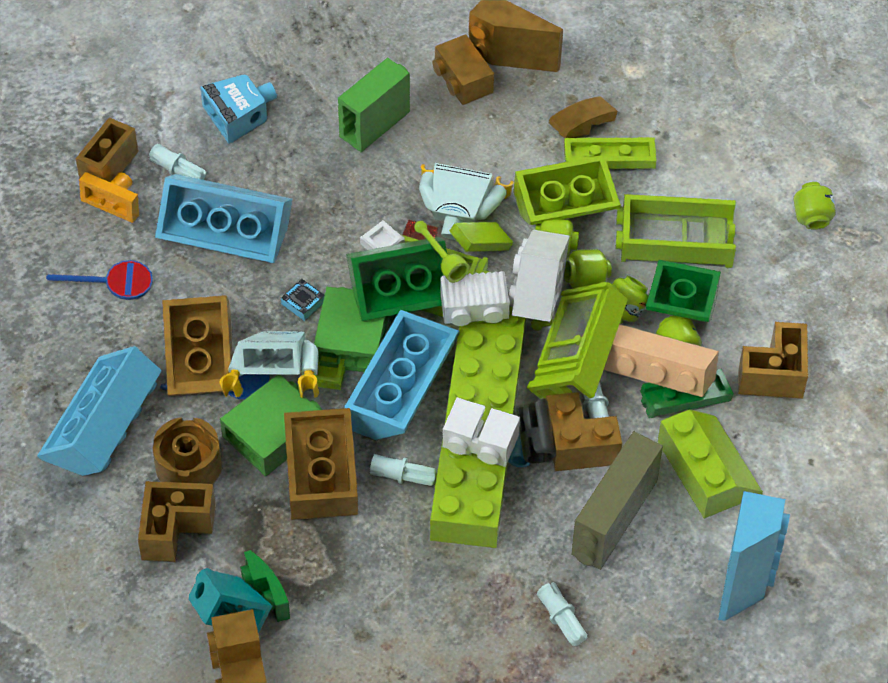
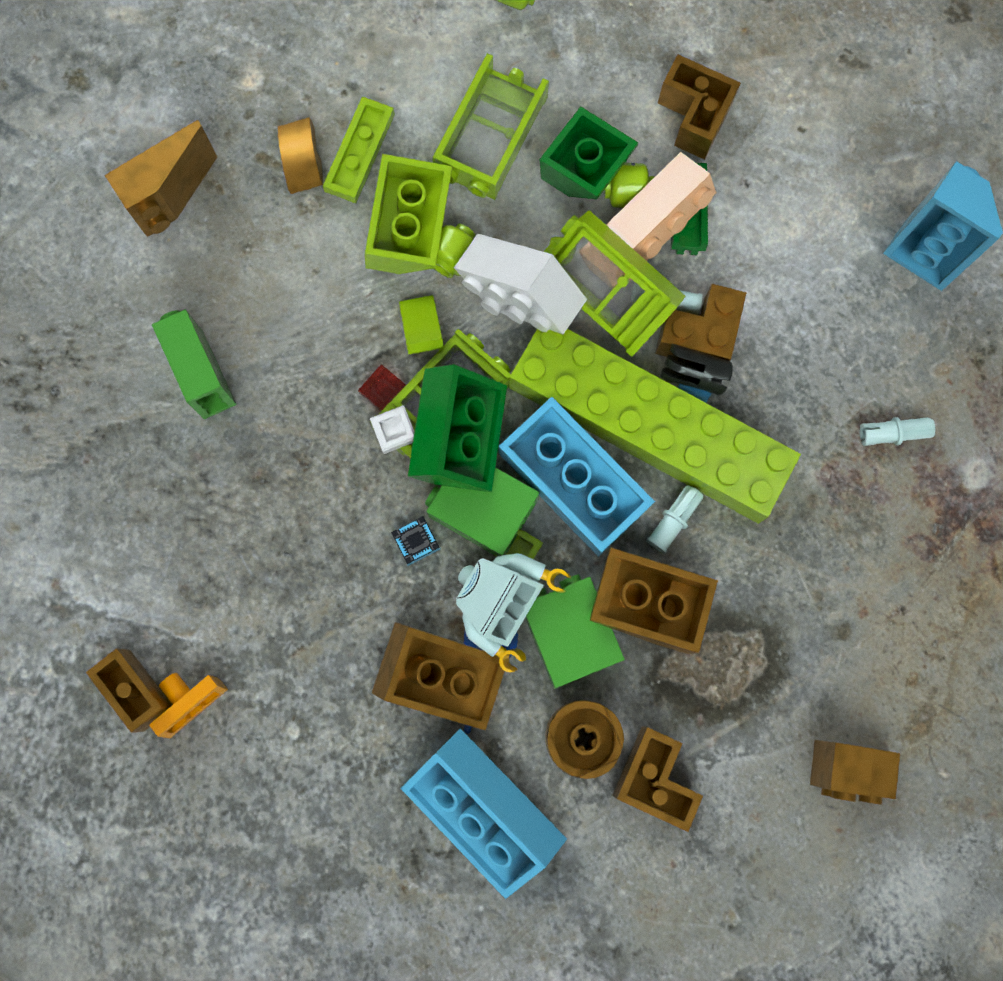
camera: 70 degrees left, 25 degrees up
(124, 280) = (306, 723): piece -> none
(175, 162) = (171, 612): light aqua axle -> none
(221, 594) = (784, 761): teal torso -> none
(223, 217) = (271, 588): medium azure slope -> none
(236, 105) = (116, 515): medium azure torso -> none
(265, 582) = (758, 711): green slope -> none
(452, 265) = (496, 369): lime hinge -> none
(460, 194) = (356, 325): light aqua torso -> none
(463, 69) = (178, 251): pearl gold brick -> none
(475, 299) = (528, 362): white brick -> none
(496, 439) = (701, 425): white piece -> none
(586, 268) = (505, 226): lime head -> none
(616, 500) = (807, 326): olive brick -> none
(636, 295) = (557, 208): lime head -> none
(706, 461) = (778, 223): lime slope -> none

